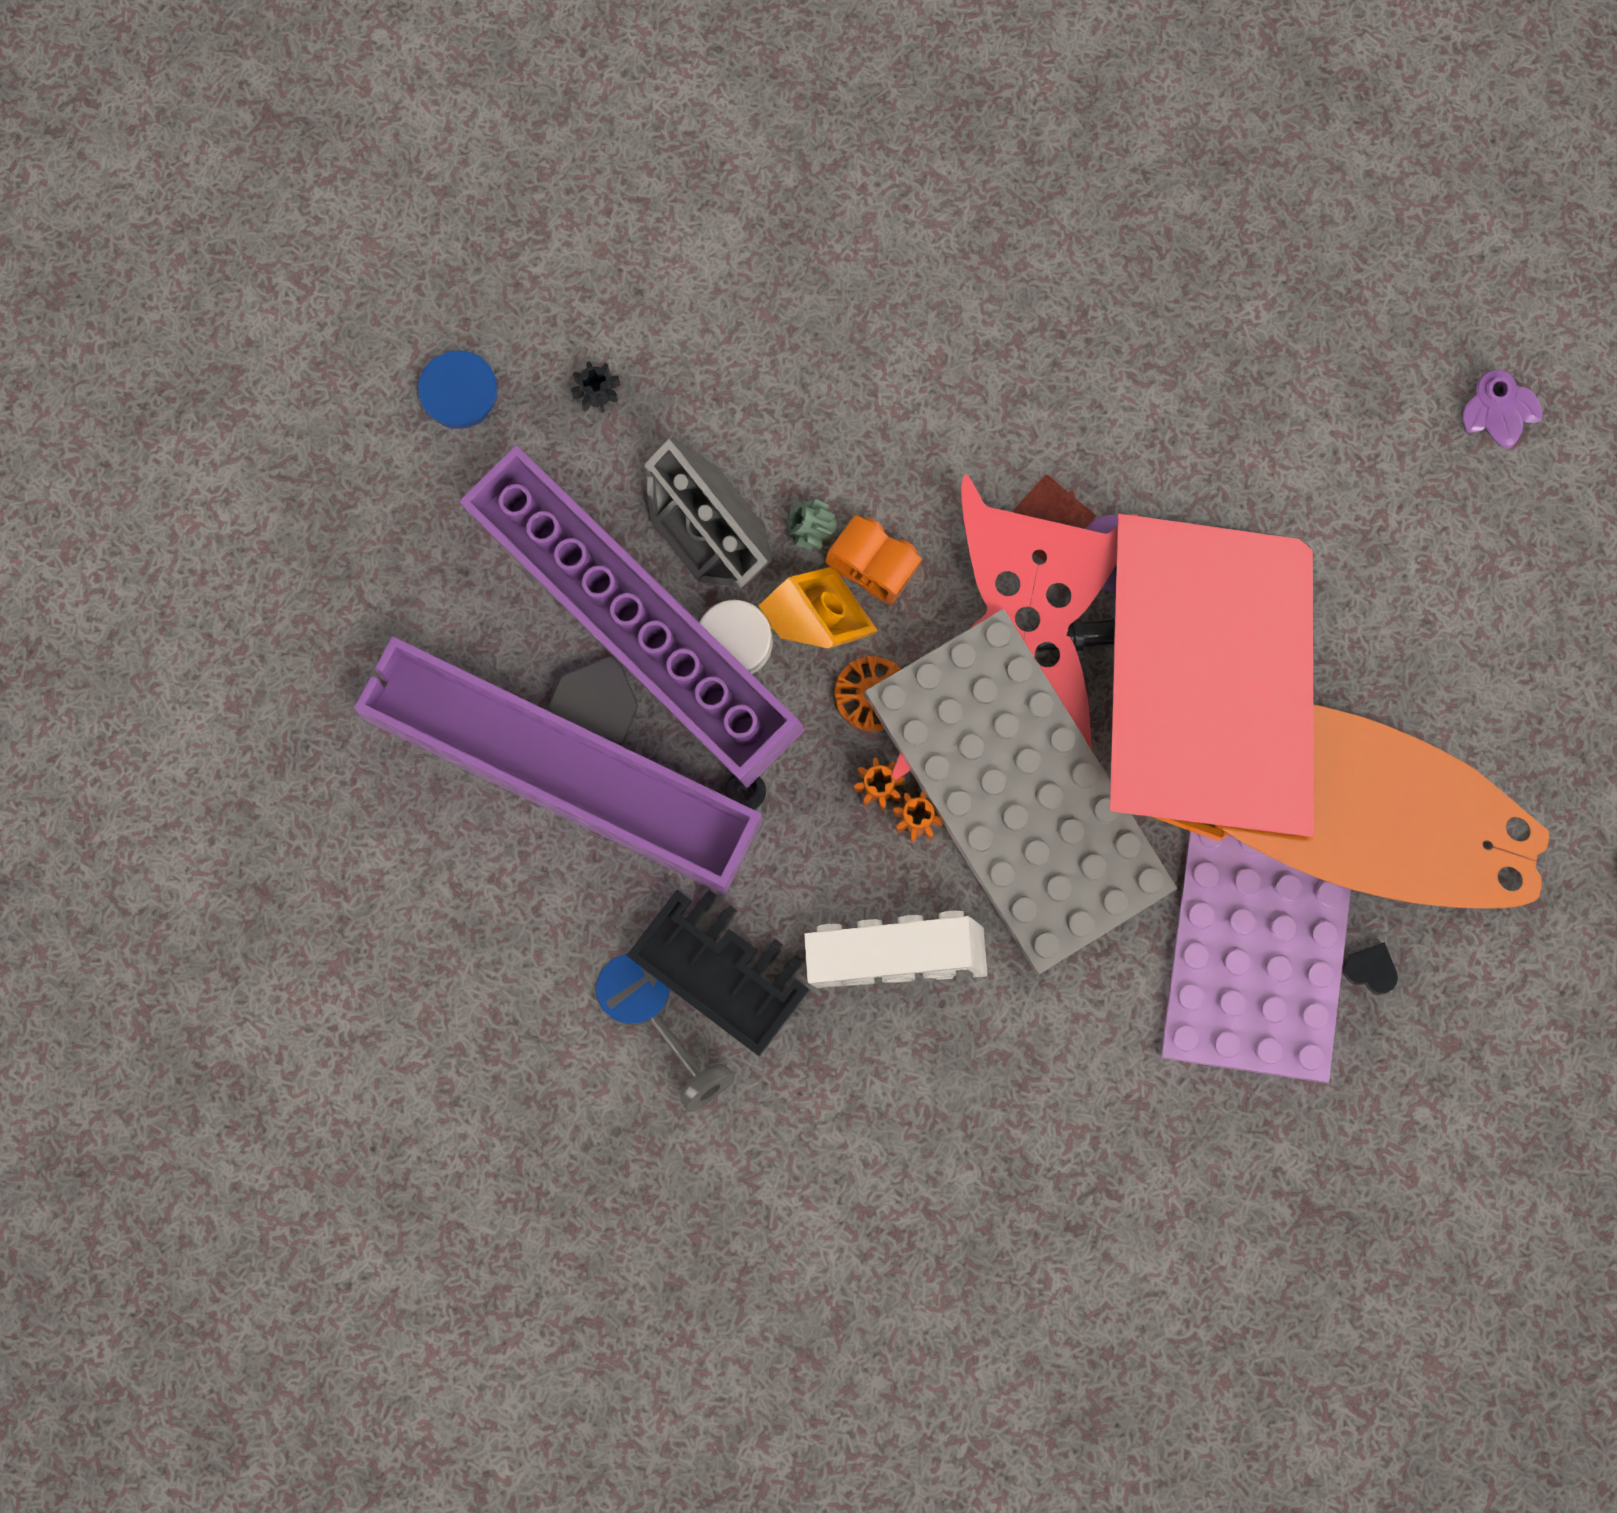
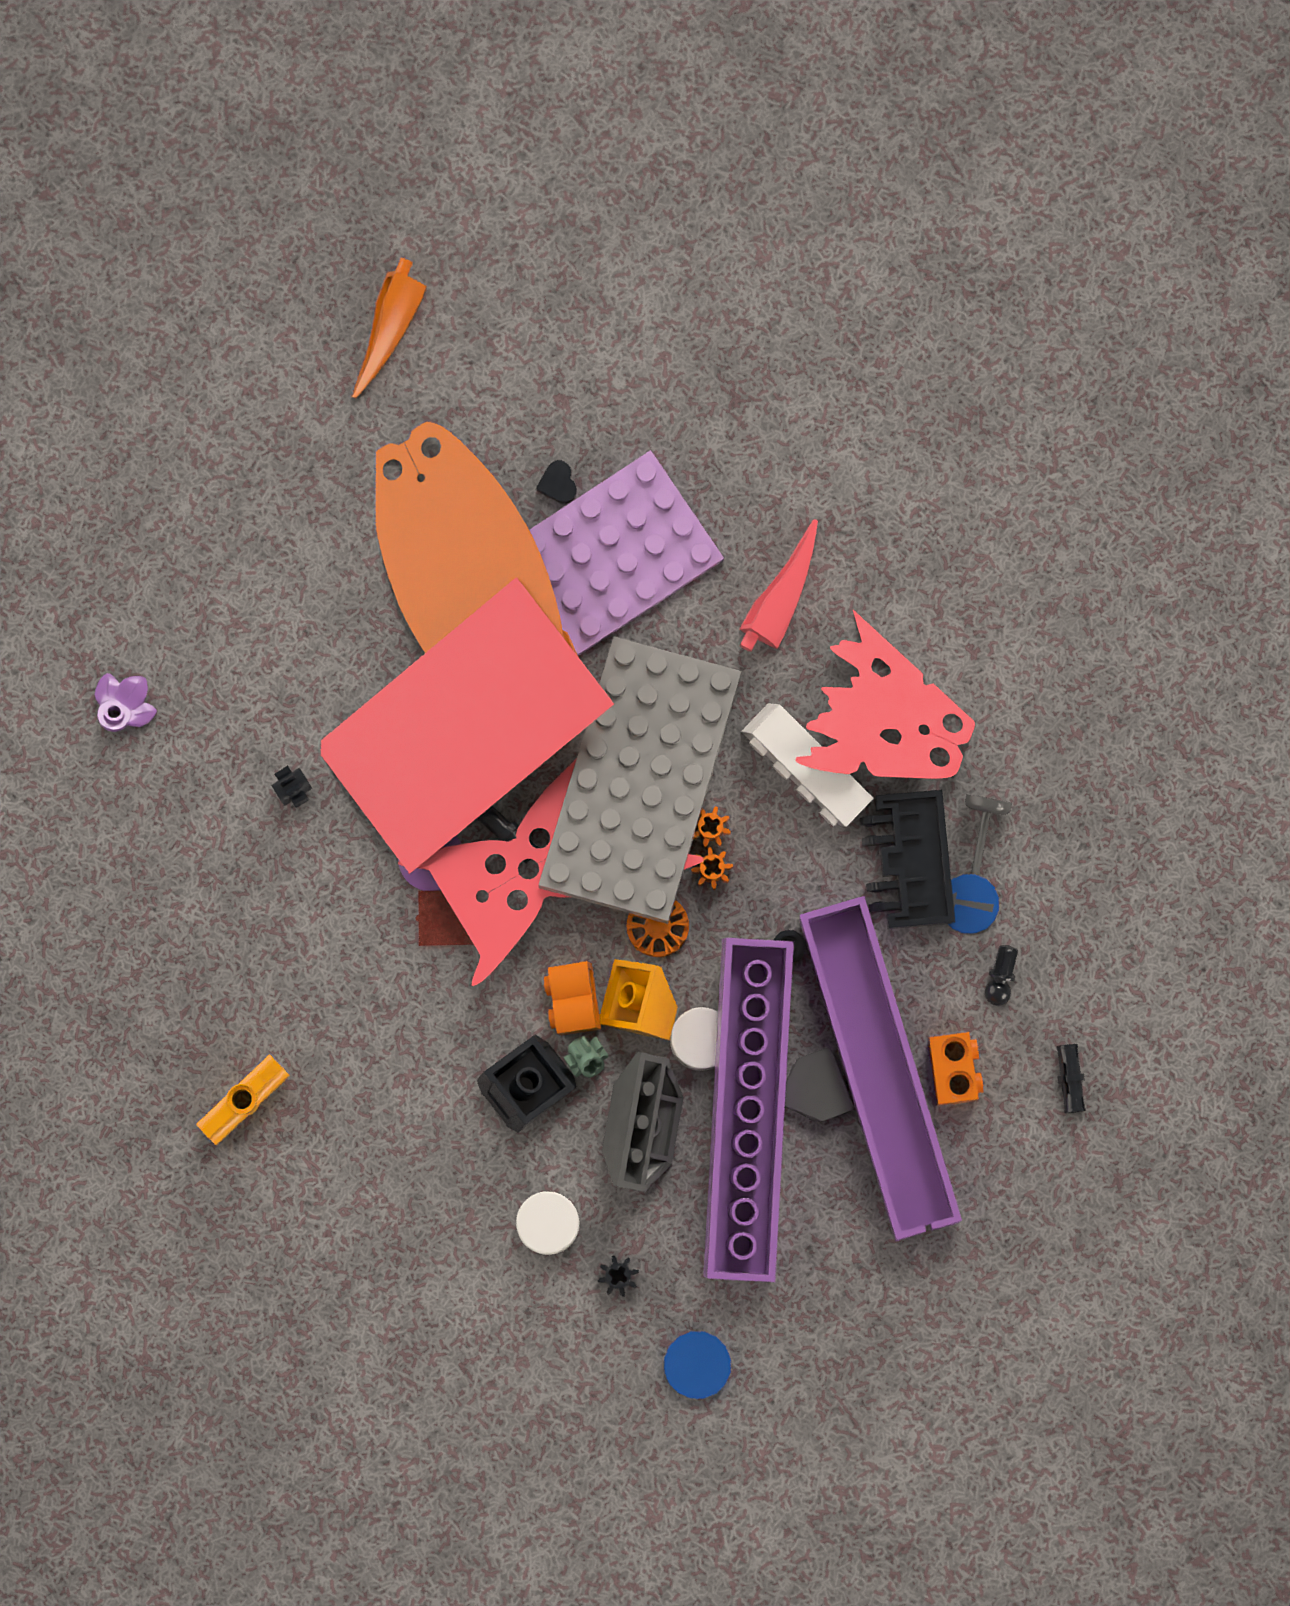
camera: 125 degrees left, 5 degrees up
(390, 933) = (1071, 1078): none -> black pin
(503, 827) = (945, 1069): none -> orange brick
(541, 957) = (998, 990): none -> black axle
(697, 369) = (547, 1223): none -> white head
(835, 457) = (526, 1083): none -> black slope
(890, 1074) = (883, 703): none -> coral piece
(1044, 229) = (226, 1116): none -> light orange piece
(1073, 1066) = (776, 605): none -> coral piece
(1291, 483) = (291, 786): none -> black gear

